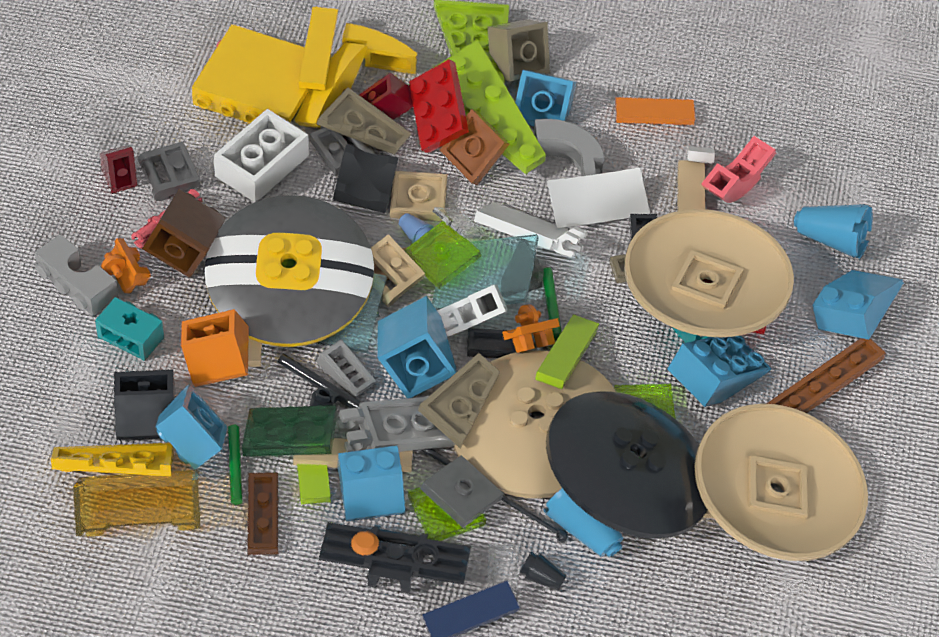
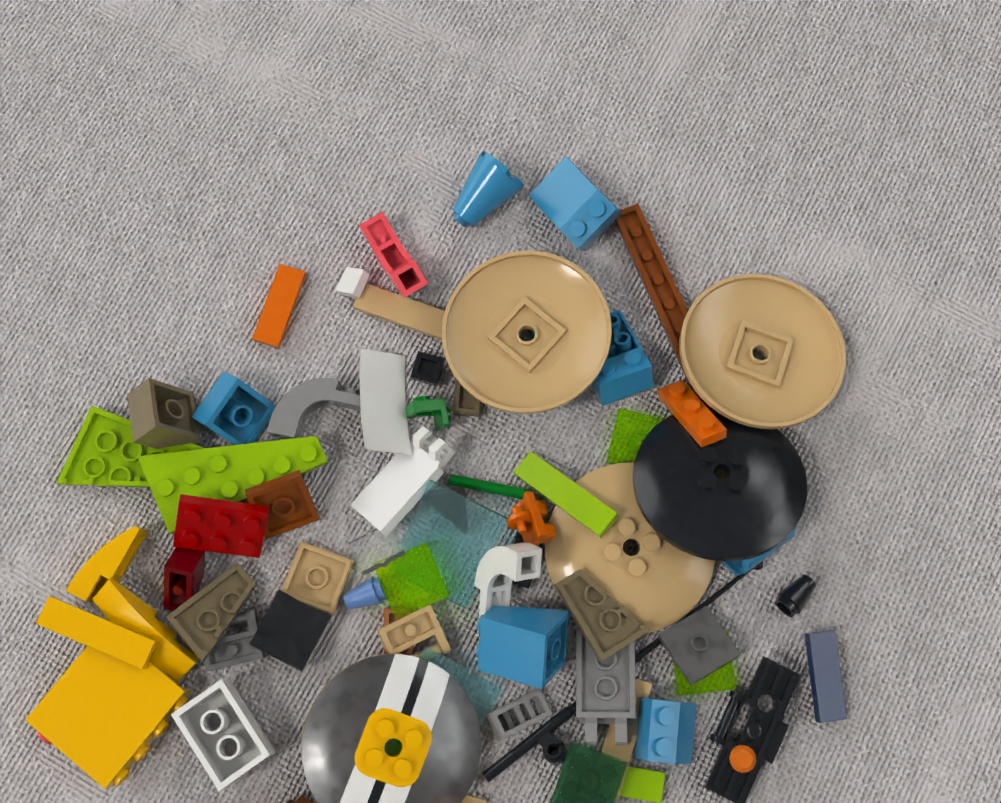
camera: 70 degrees left, 25 degrees up
(606, 232) = (424, 407): none -> green bracket
(686, 431) = (692, 413): none -> orange plate

